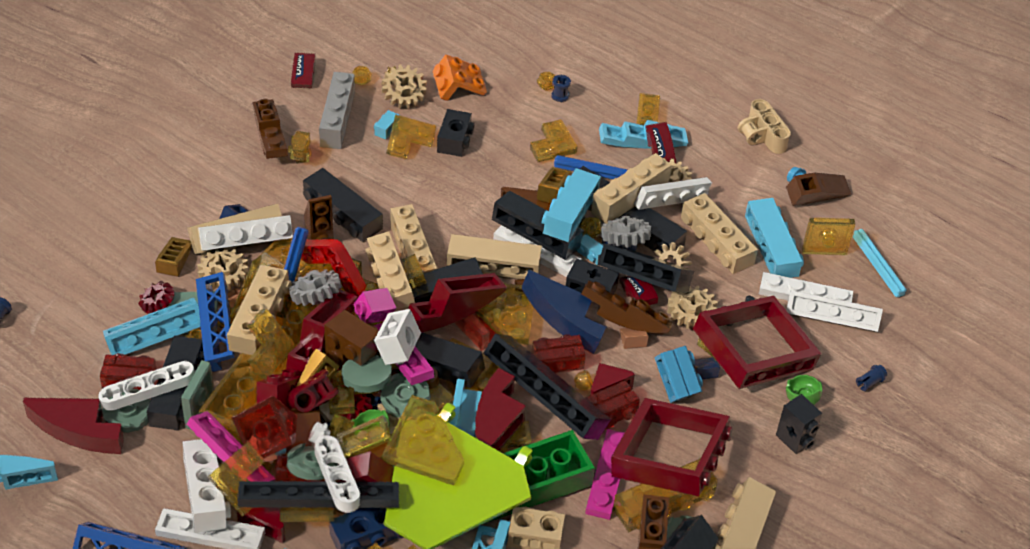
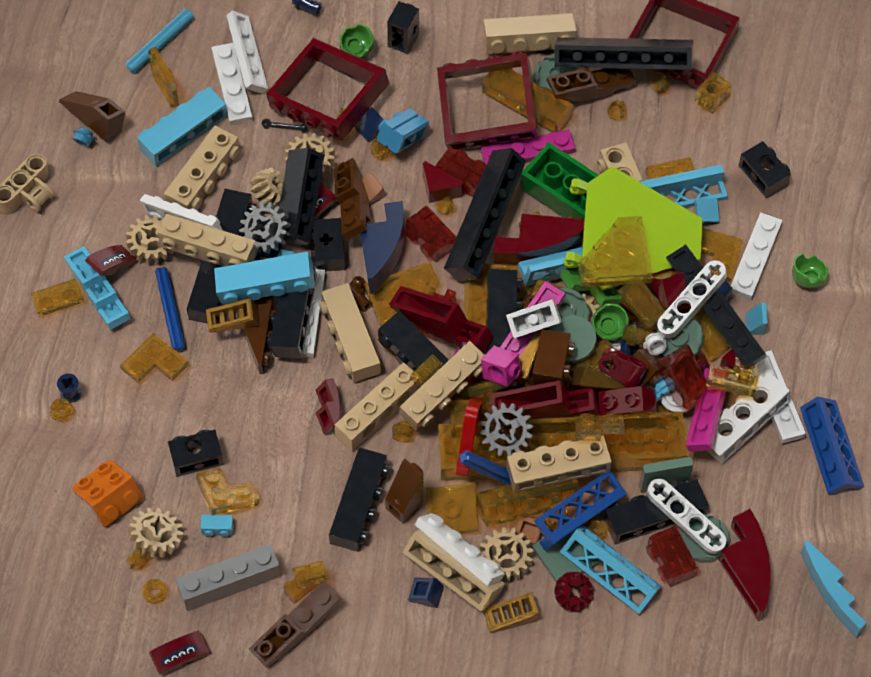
camera: 115 degrees left, 15 degrees up
(432, 218) = (329, 400): none -> dark red slope

